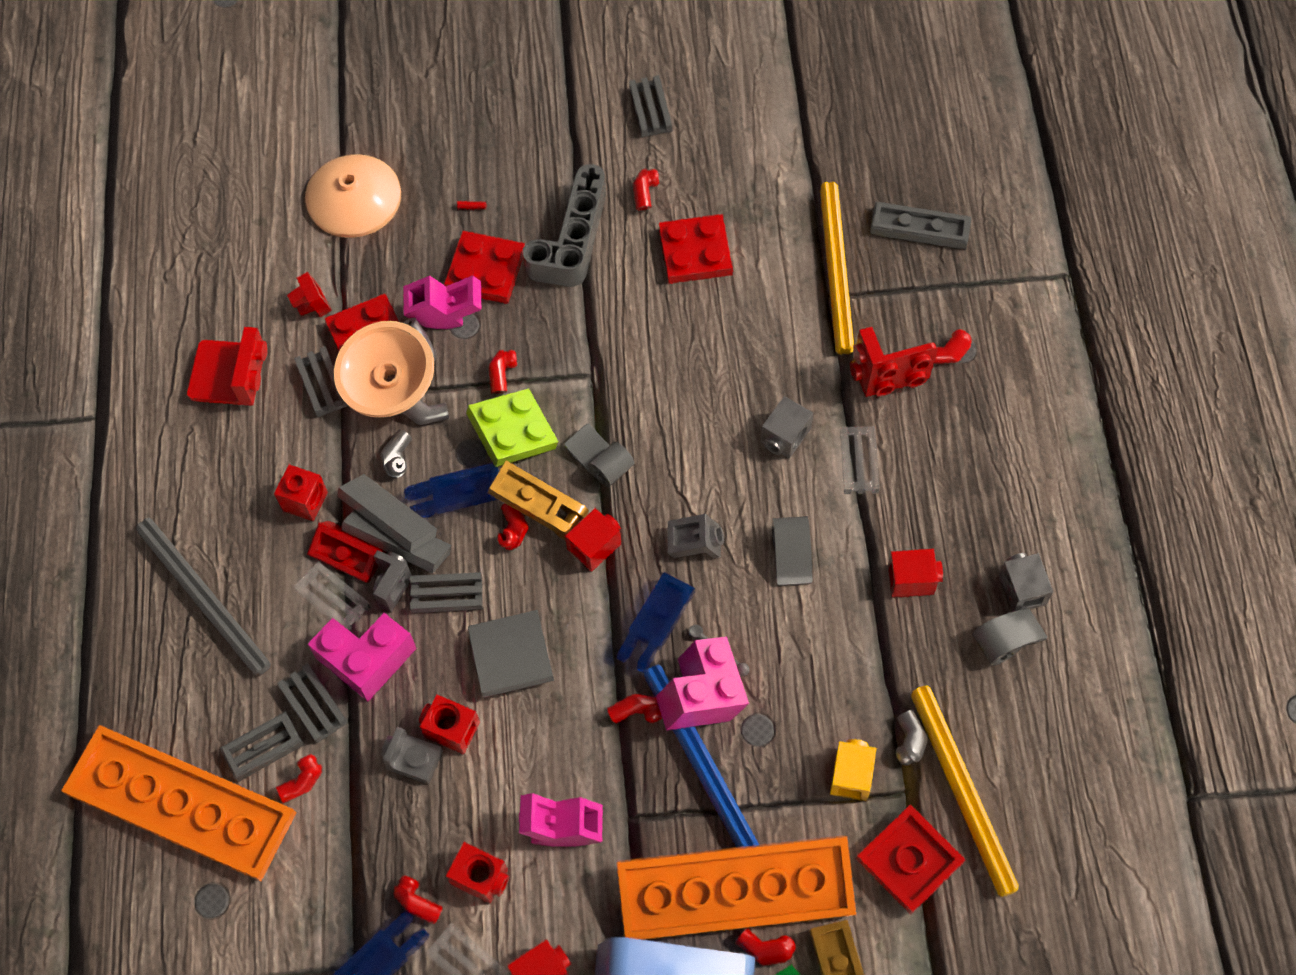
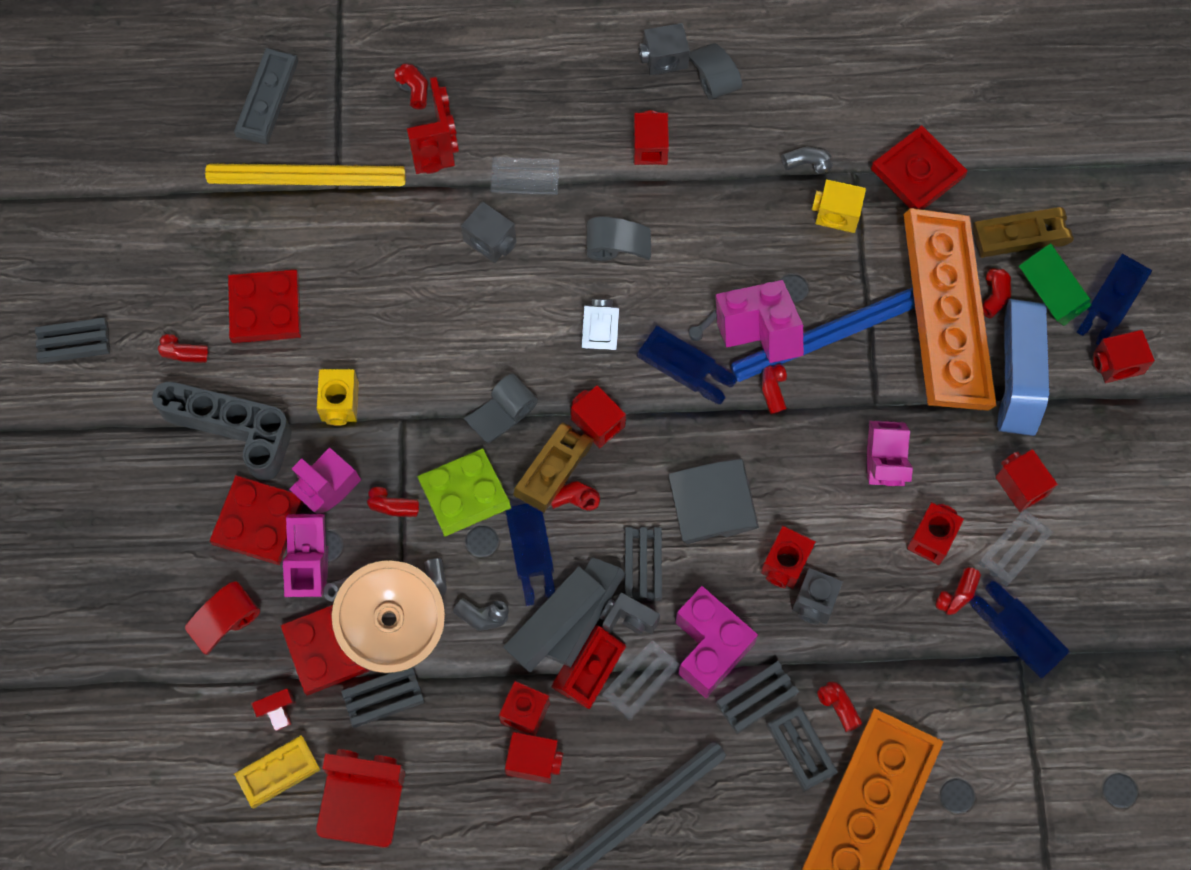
camera: 90 degrees left, 5 degrees up
(256, 304) = (277, 772): none -> yellow plate
(256, 504) = (533, 758): none -> red brick
(356, 207) = (149, 687): light nougat dish -> none
(396, 250) = (225, 611): none -> red panel
(471, 205) = (172, 534): red piece -> none
(516, 310) = (324, 482): none -> dark pink brick
(602, 302) = (335, 382): none -> yellow brick
(964, 792) = (853, 123): yellow axle -> none

